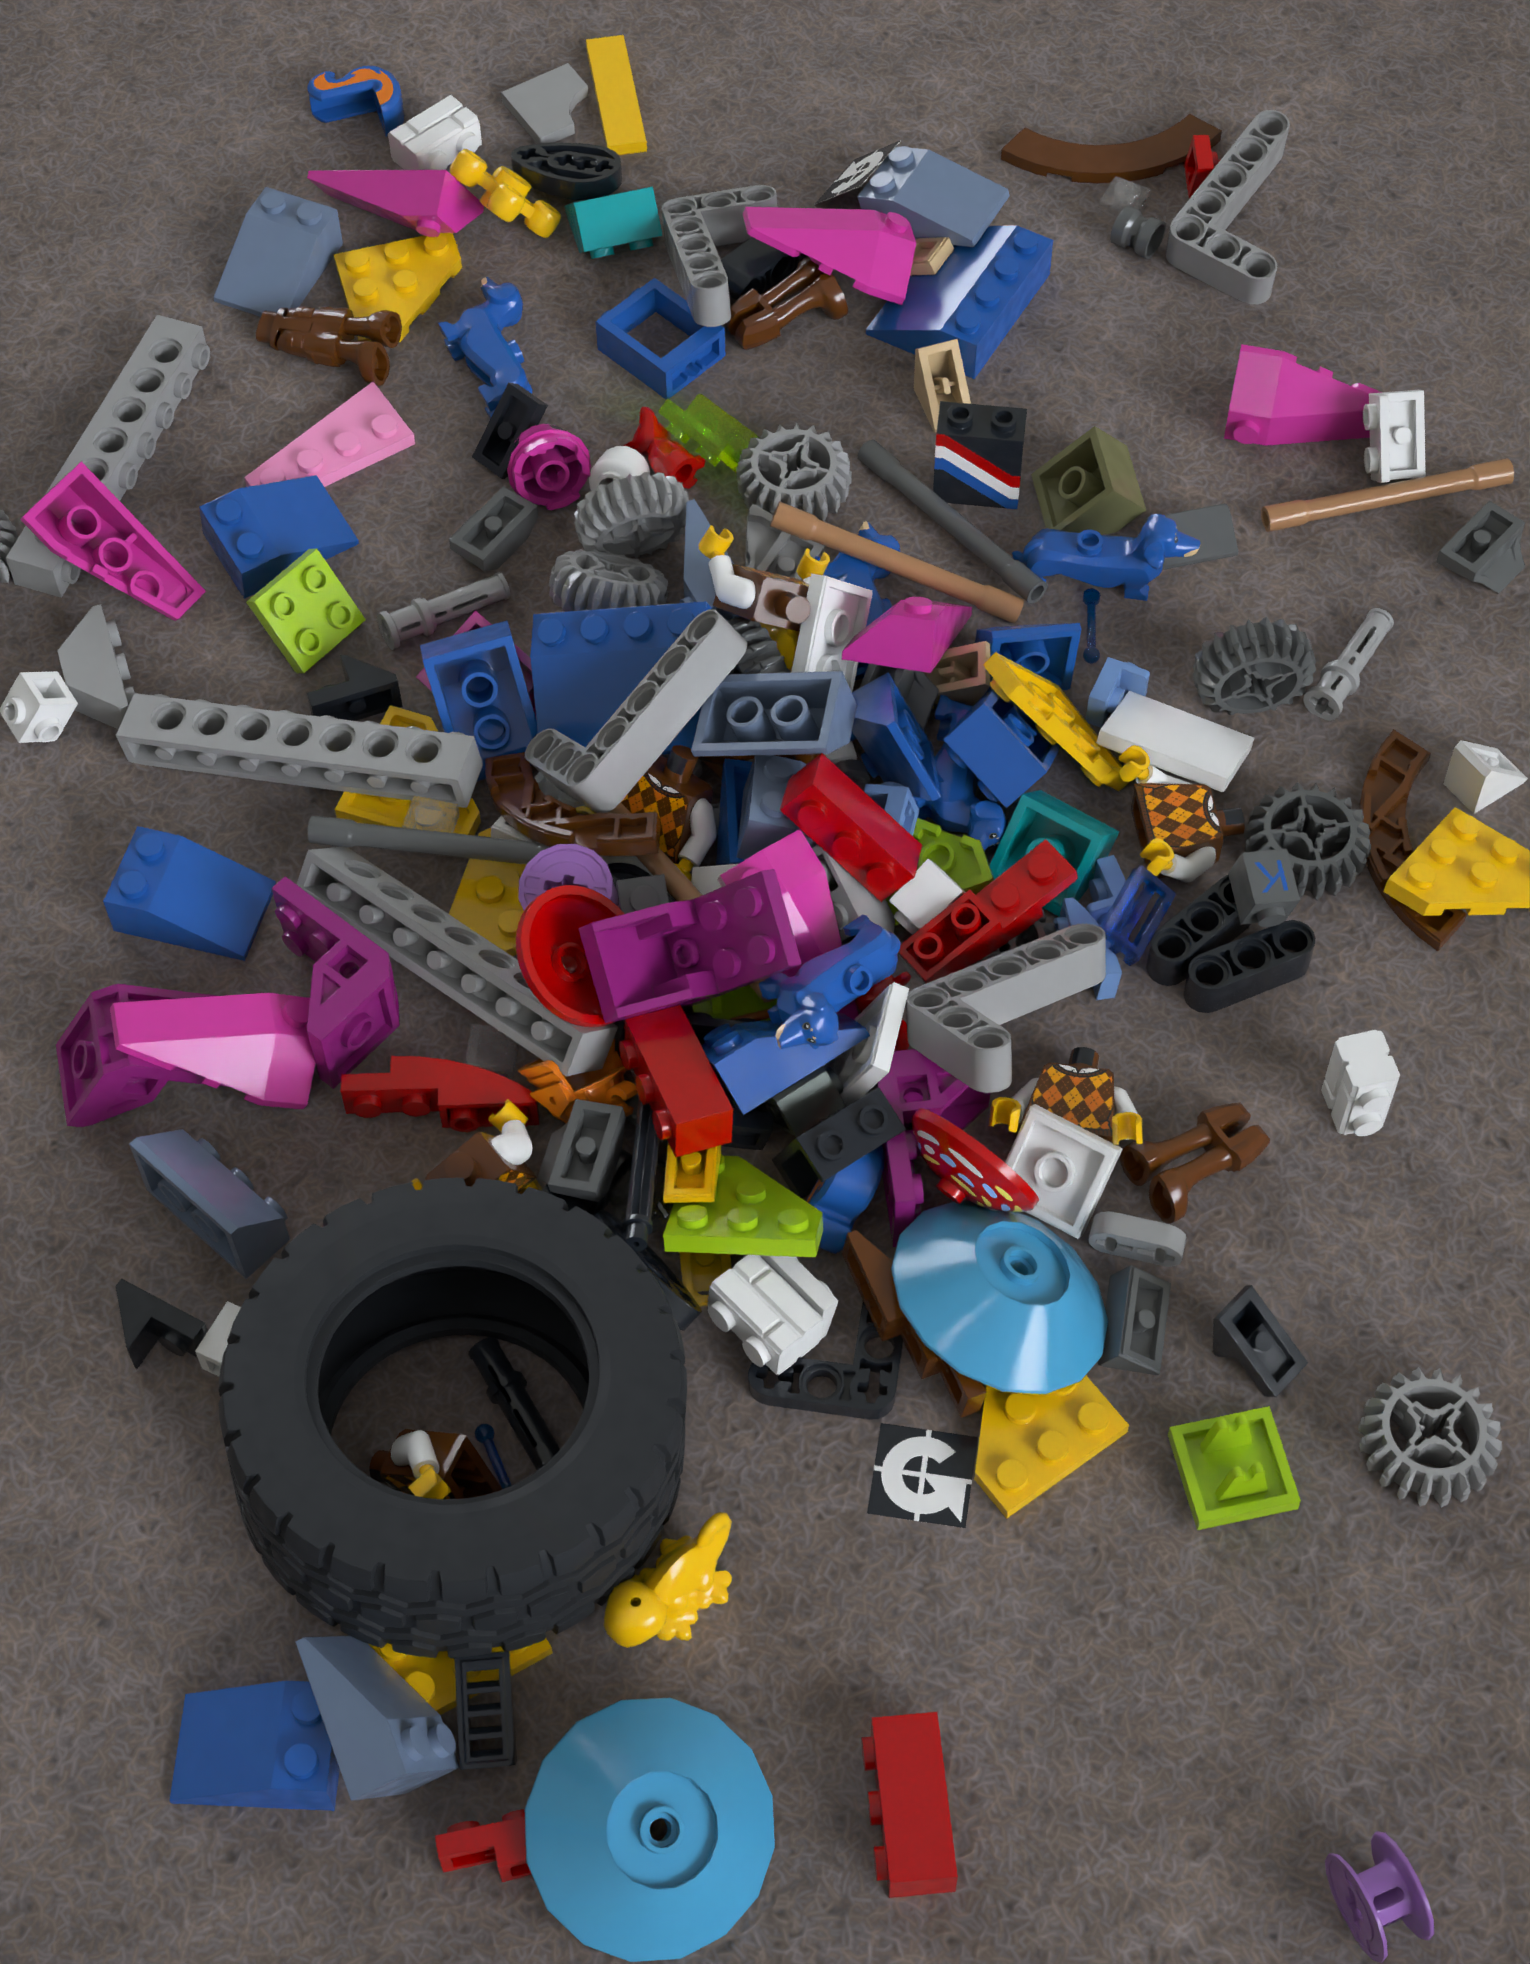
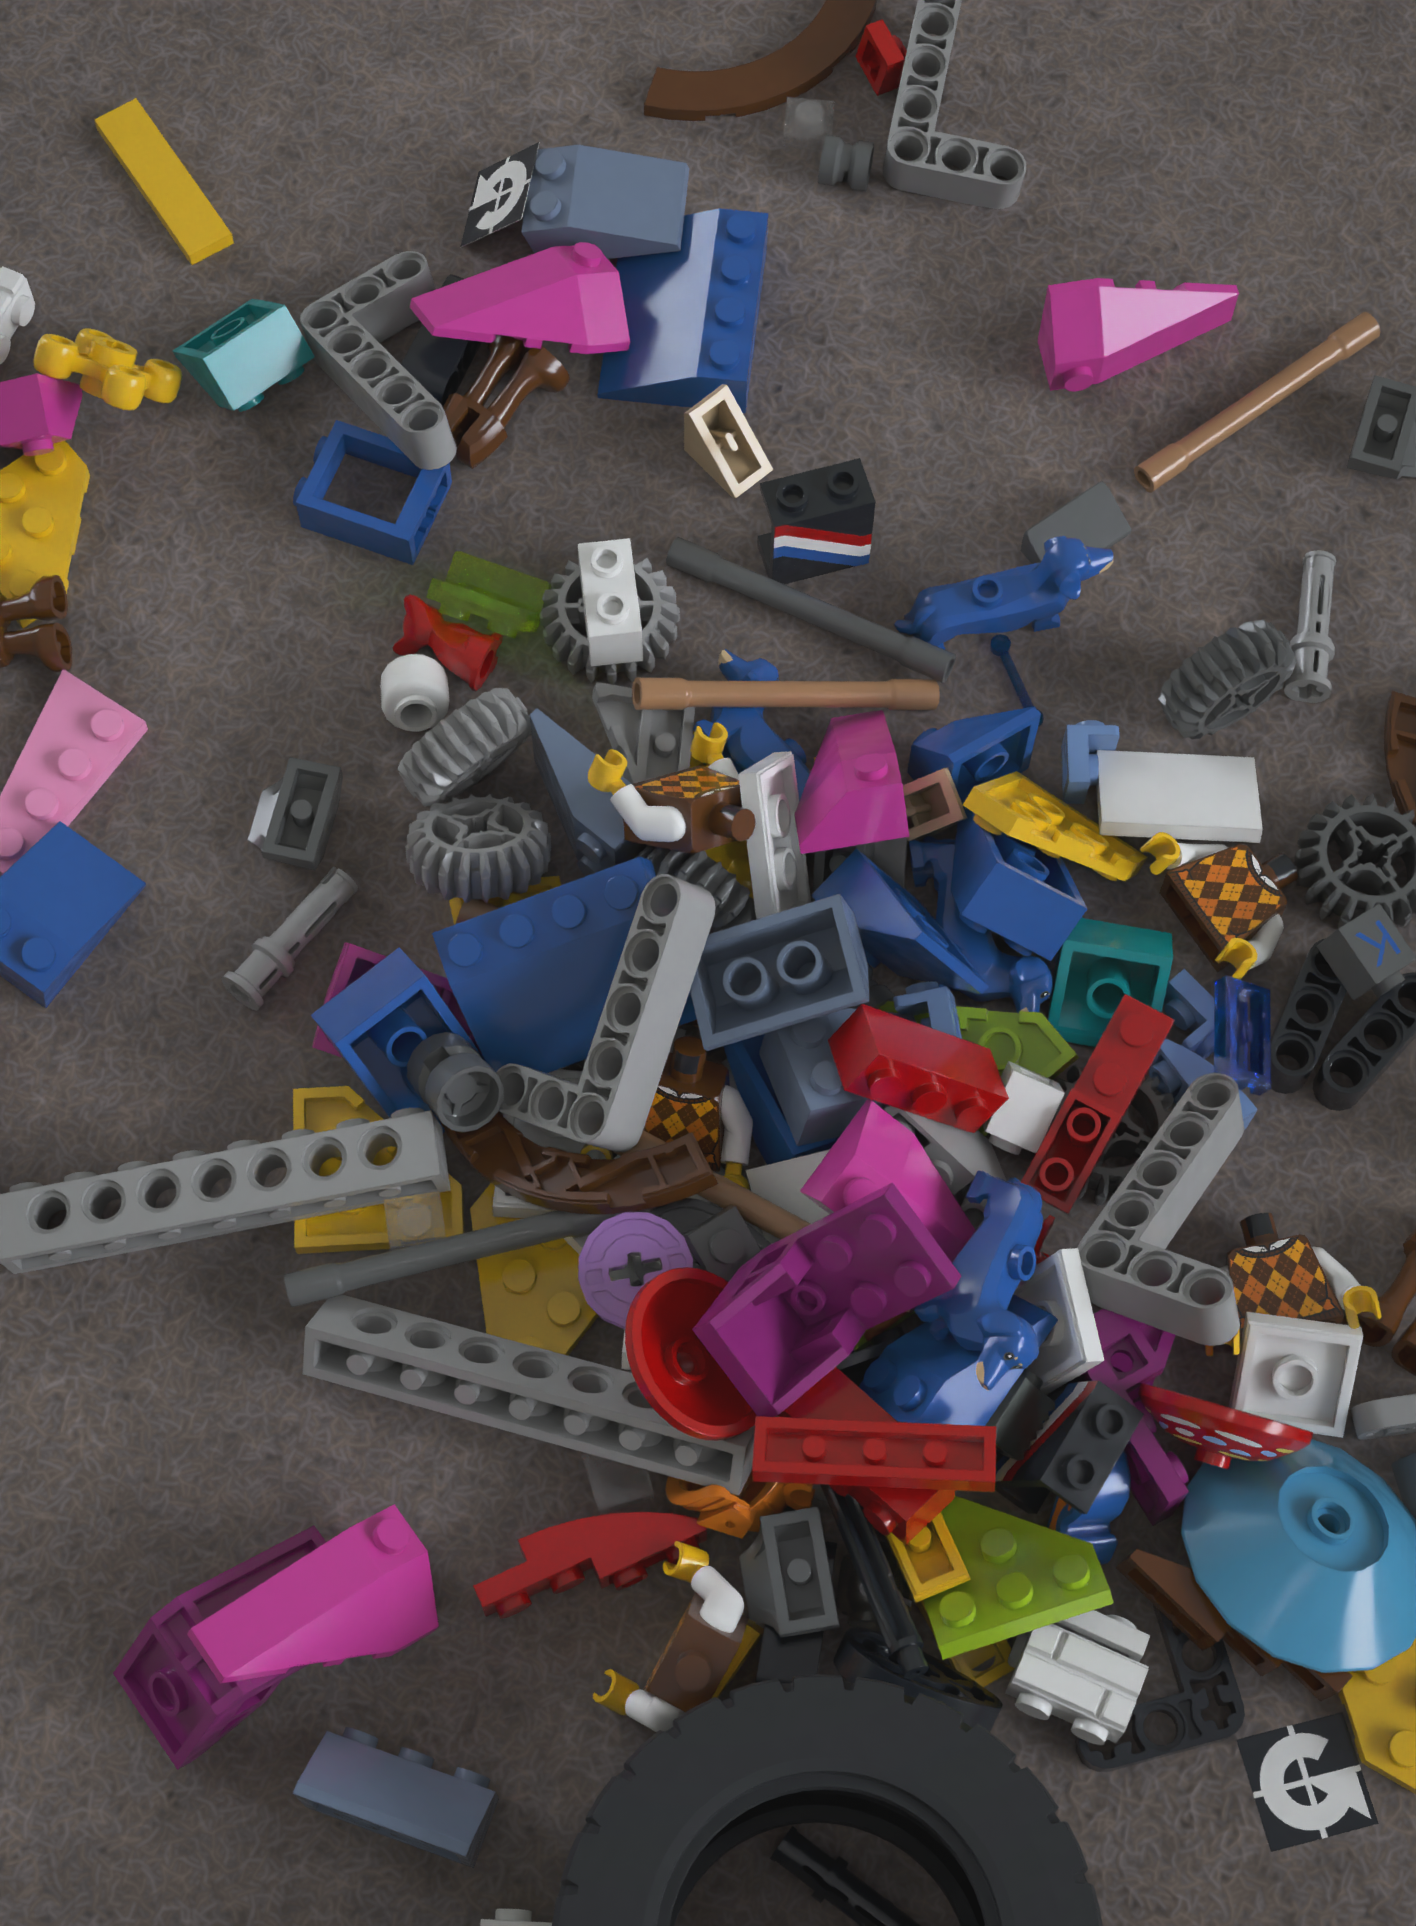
camera: 25 degrees left, 10 degrees up
(186, 895) = (178, 1425): blue slope -> none
(306, 610) = (139, 1008): lime plate -> none
(351, 983) = (439, 1506): magenta bracket -> none
(362, 695) = (254, 1081): black slope -> none
(480, 341) = (183, 583): blue animal -> none
(503, 727) = (455, 1082): none -> dark grey wheel
(512, 416) = (262, 680): black slope -> none
(546, 103) = (85, 221): light grey tile -> none
(548, 466) = (329, 710): dark pink cone -> none
(569, 169) = (127, 308): black piece -> none
(675, 1067) = (874, 1454): none -> red plate
(790, 453) = (610, 602): none -> white brick
(930, 255) = (635, 273): tan tile -> none
(1089, 486) = (941, 514): olive slope -> none
(1395, 435) = (1243, 330): white bracket -> none

